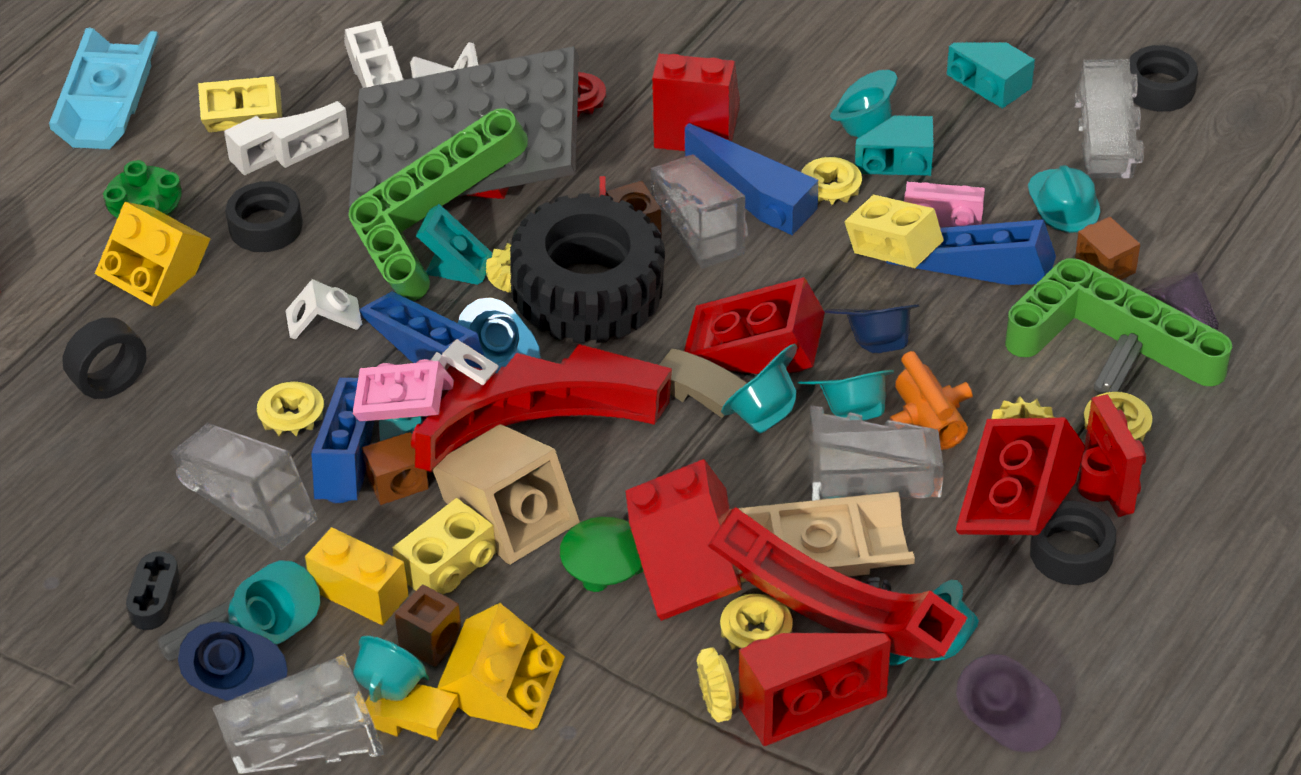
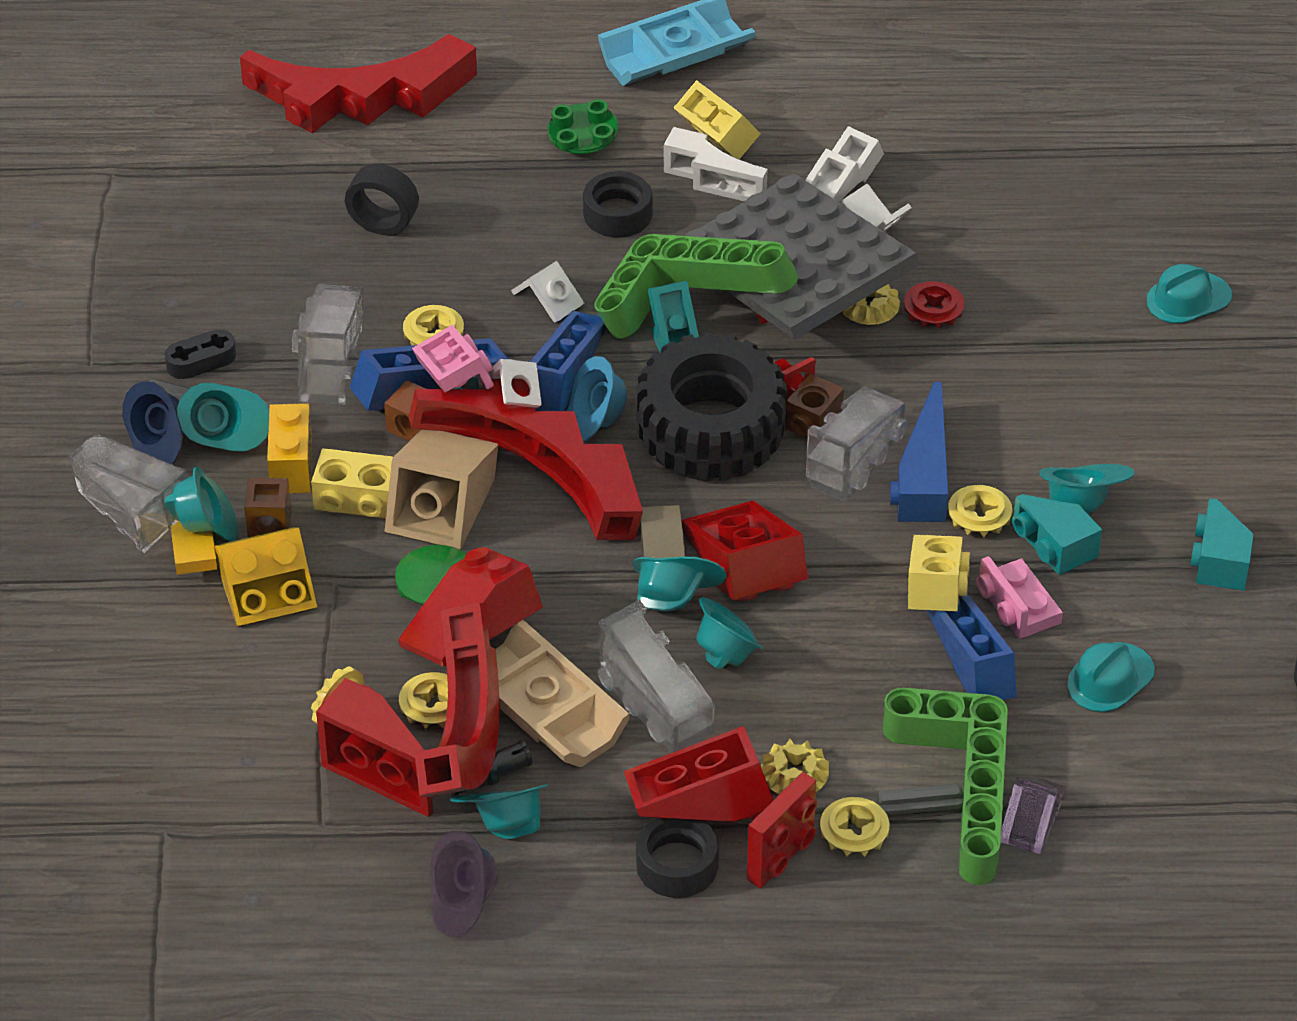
camera: 55 degrees right, 0 degrees up
(150, 253) = (520, 165): yellow slope -> none
(693, 93) = (972, 376): red slope -> none
(879, 329) = (819, 613): dark blue piece -> none
(929, 403) = (757, 690): orange pin -> none
(1108, 248) = (1053, 728): dark orange brick -> none
(1109, 118) = (1222, 650): clear wedge -> none

